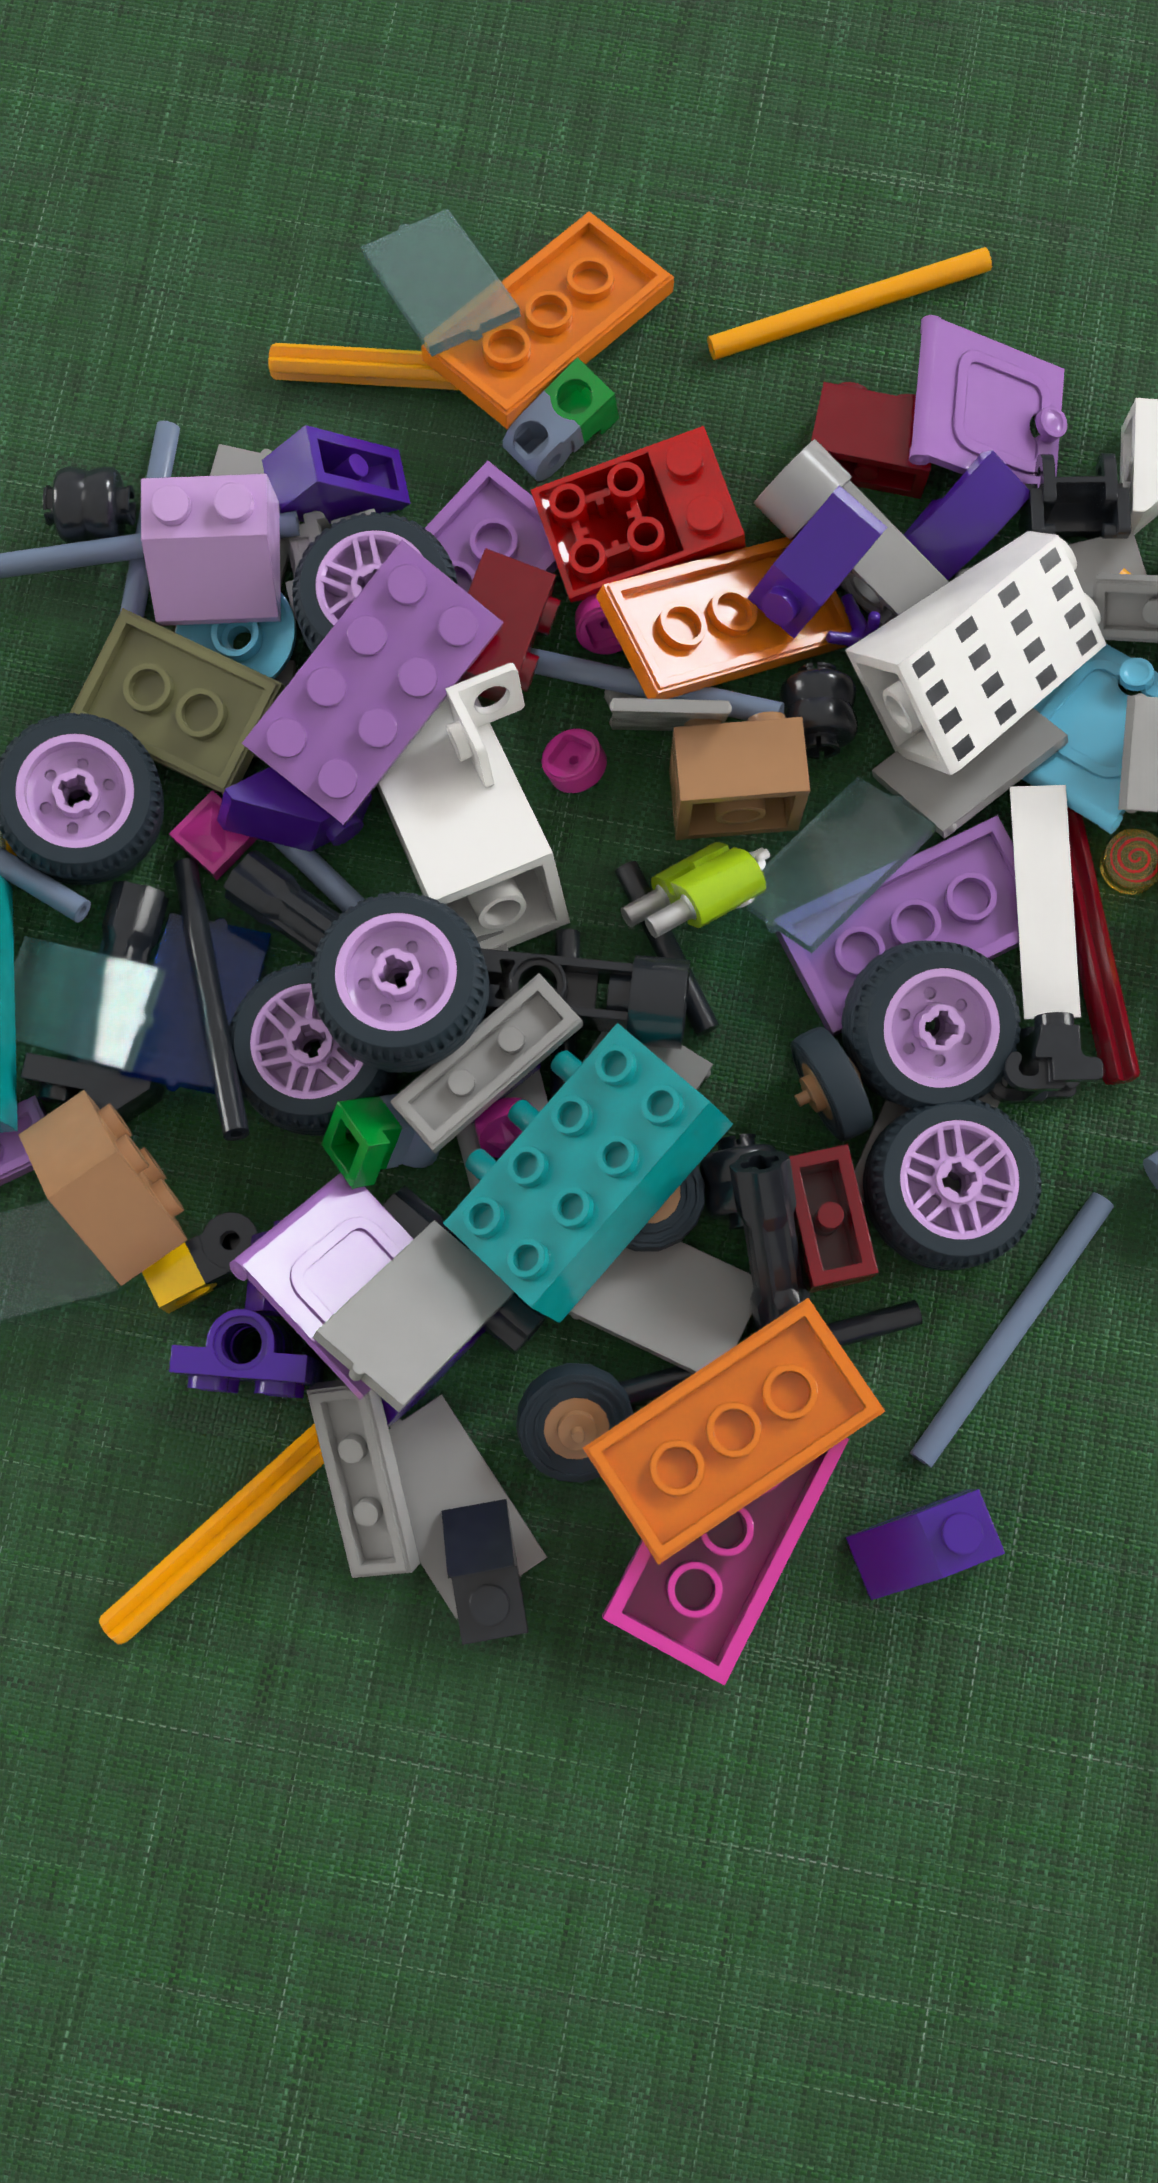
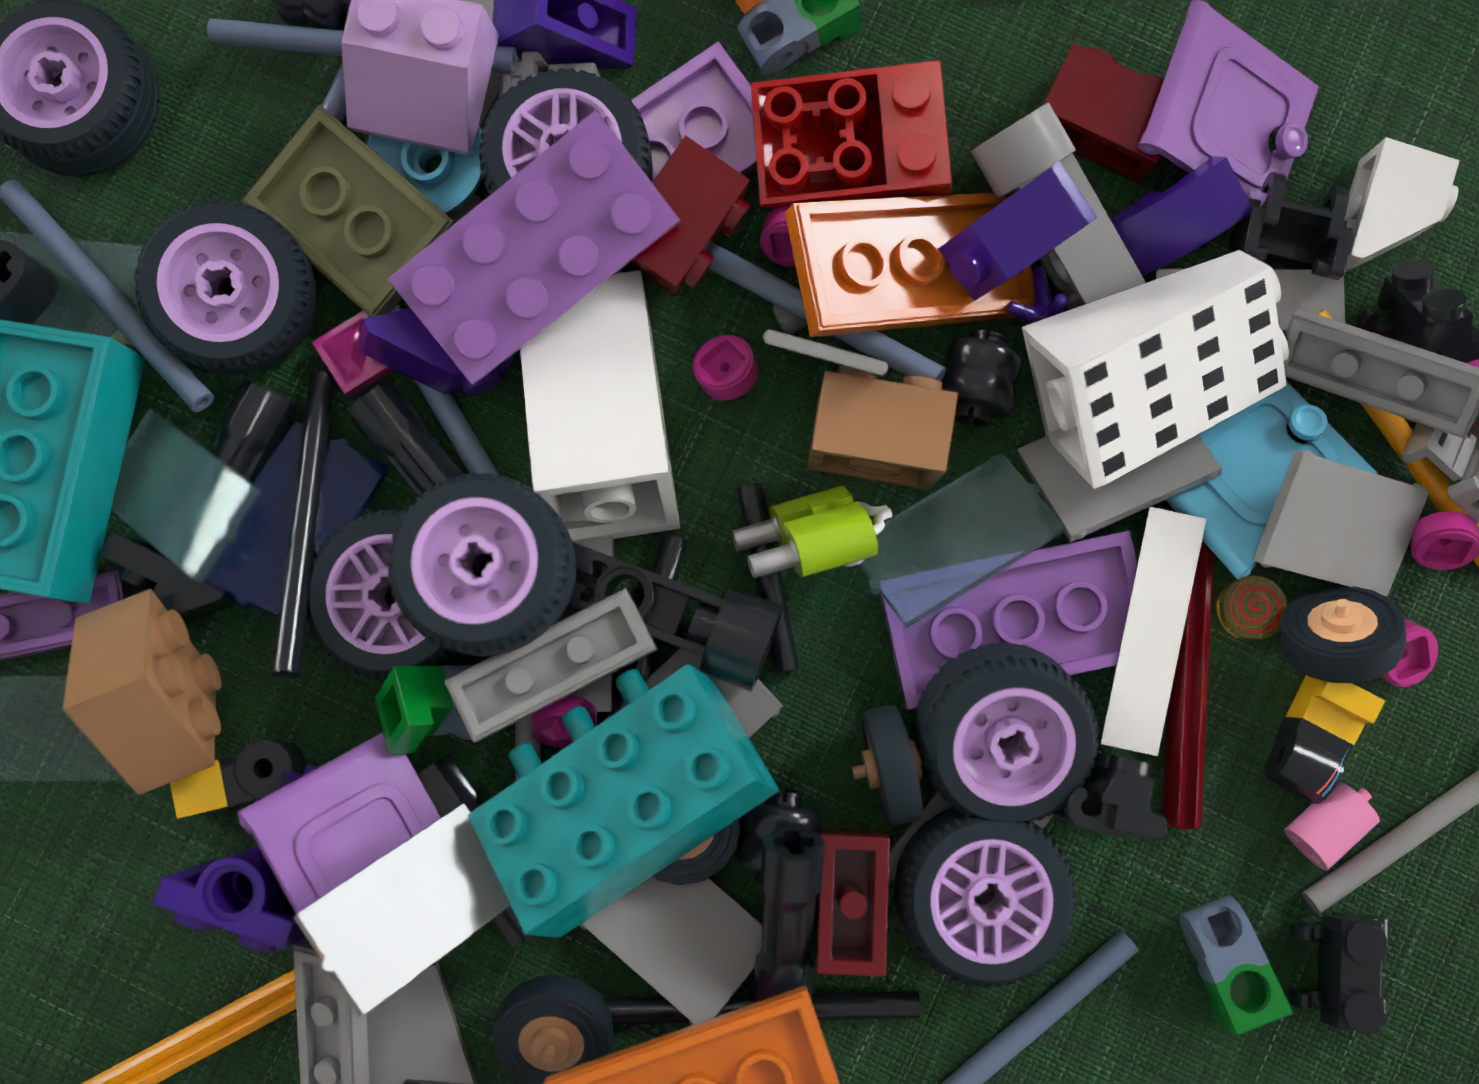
camera: 15 degrees right, 5 degrees up
(468, 717) = (626, 304): white bracket -> none

